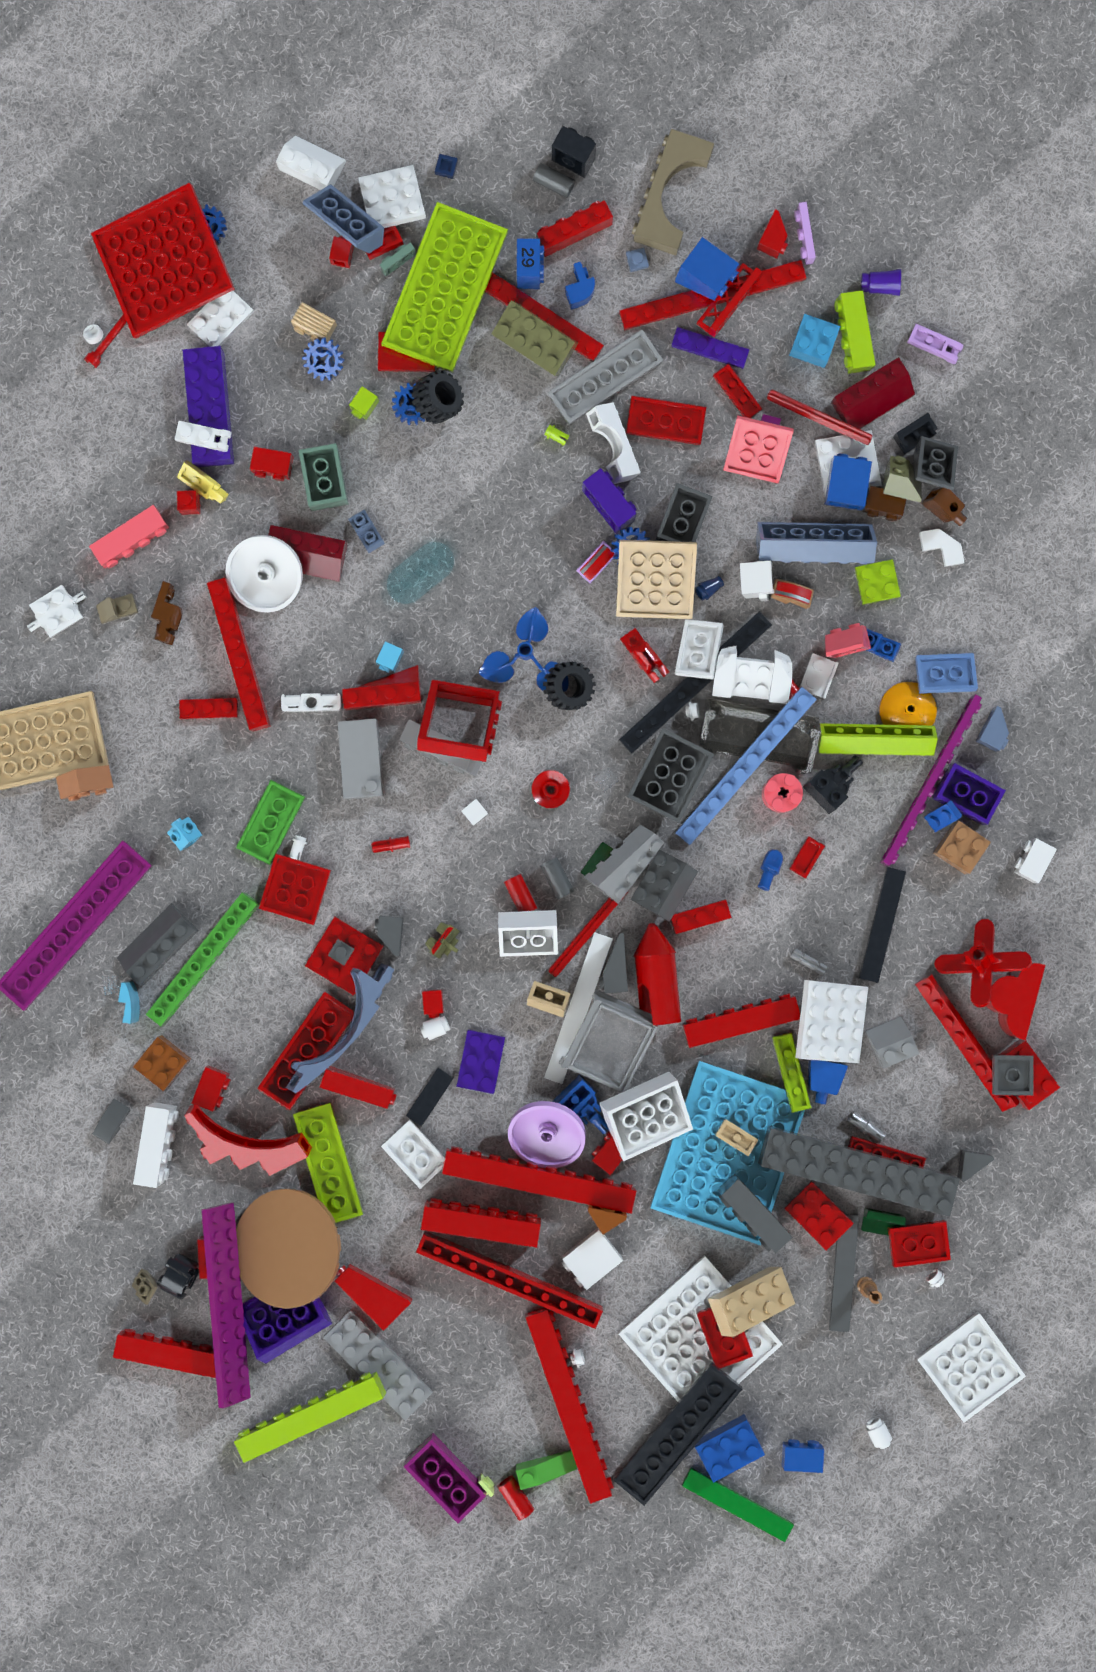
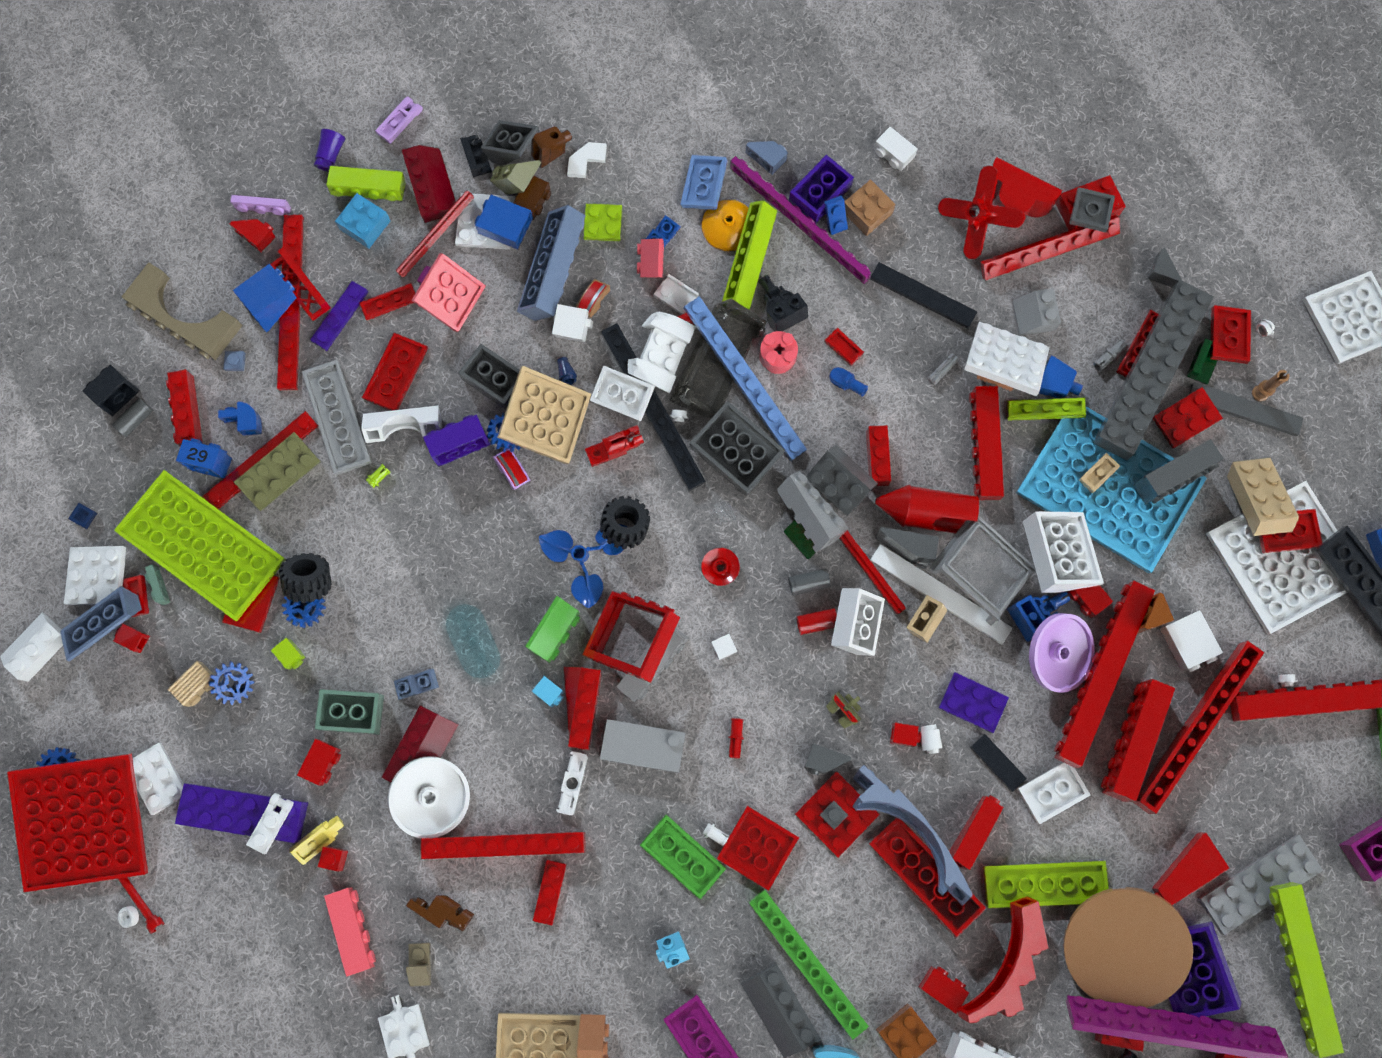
camera: 75 degrees left, 10 degrees down
(447, 646) = (553, 630): none -> bright green slope

